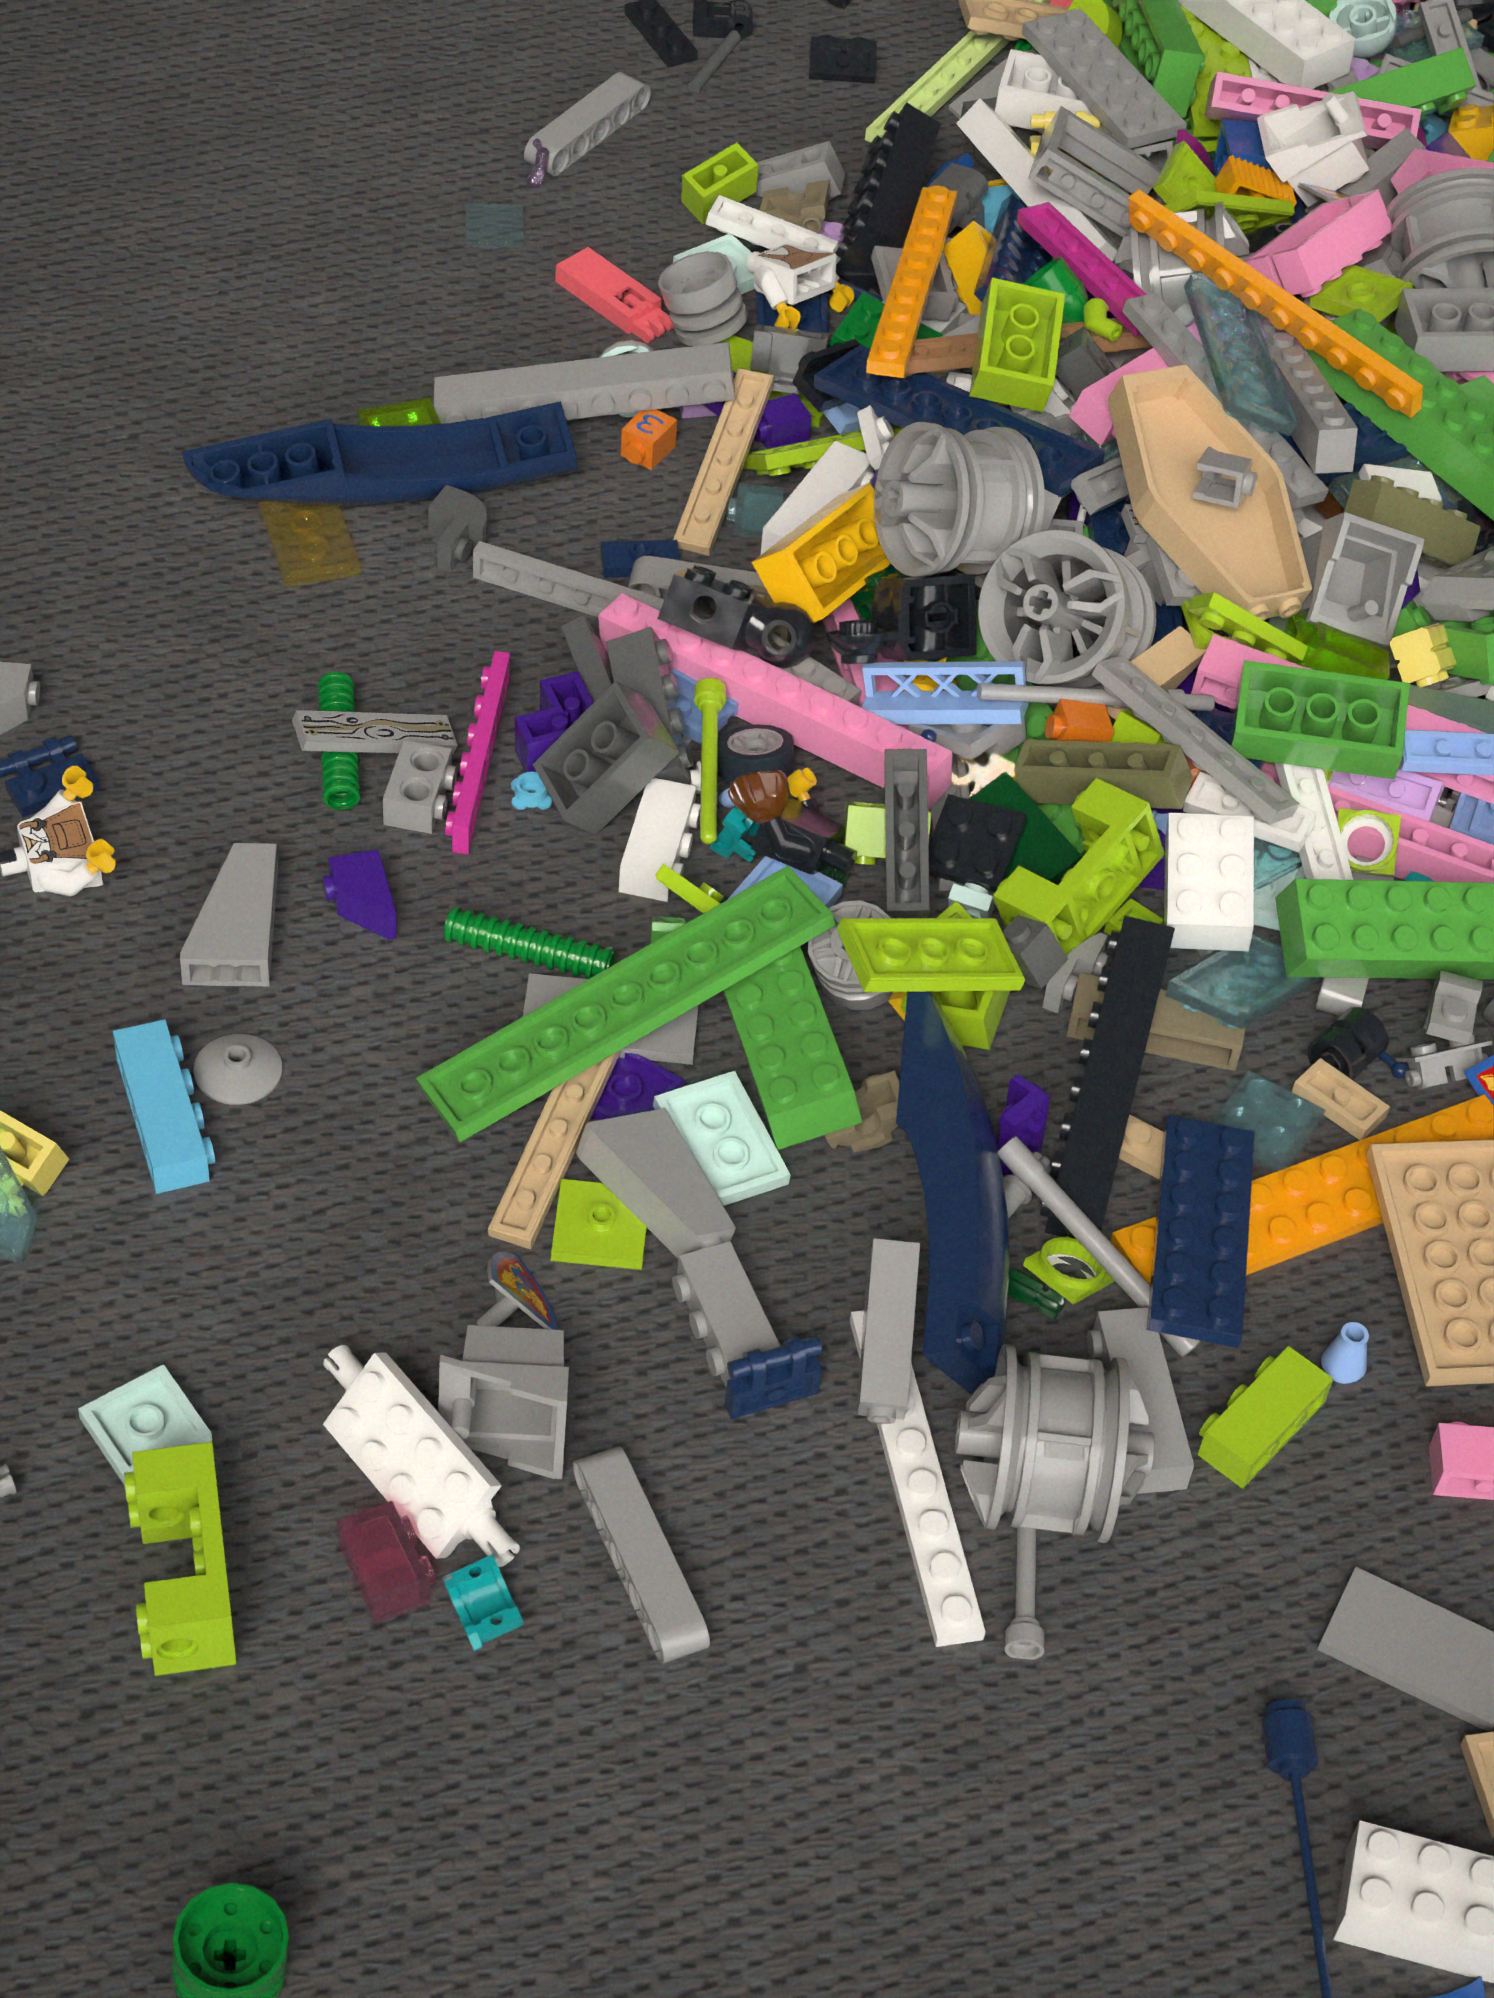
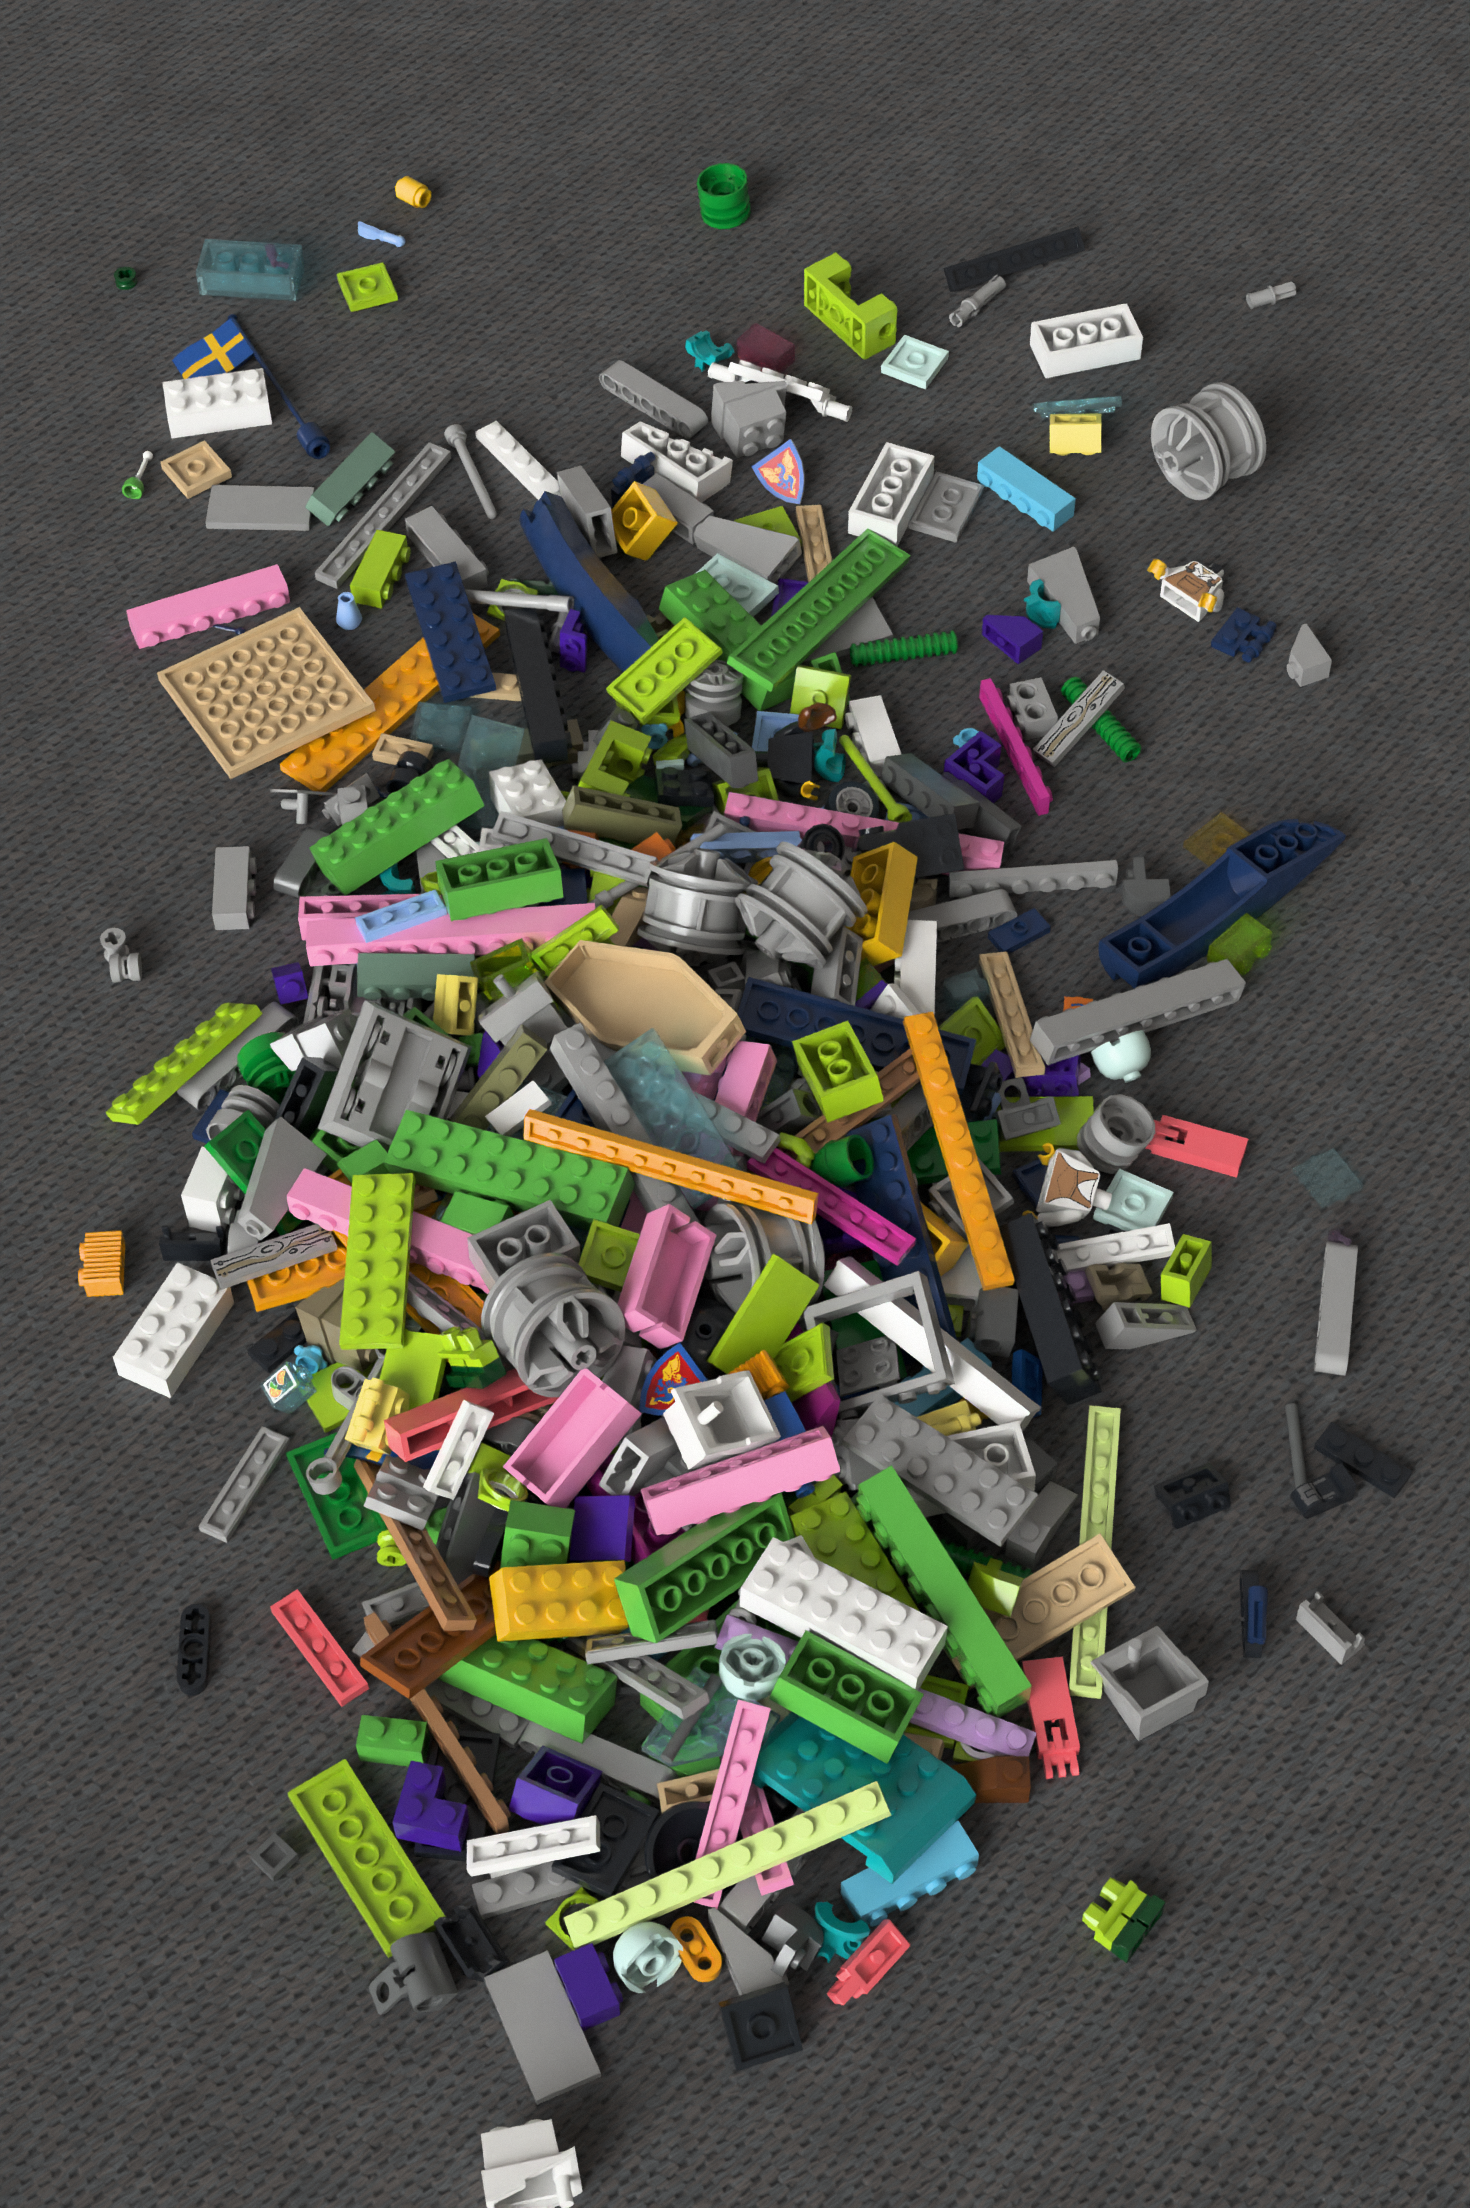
camera: 160 degrees right, 5 degrees up
(237, 1081) = (1007, 534): light grey dish -> none
(293, 924) = (1040, 611): none -> teal piece
(295, 1148) = (946, 507): none -> light grey tile
(377, 1172) = (891, 492): none -> white brick
(605, 758) = (924, 737): dark grey brick -> none
(678, 1380) = (676, 460): none -> white wedge
(808, 1279) = (641, 521): none -> yellow brick
(1054, 1443) = (475, 473): light grey wheel -> none
(1212, 1530) = (383, 514): none -> light grey plate
(1224, 478) = (634, 995): light grey window -> none
(1254, 1609) = (350, 480): none -> sand green brick

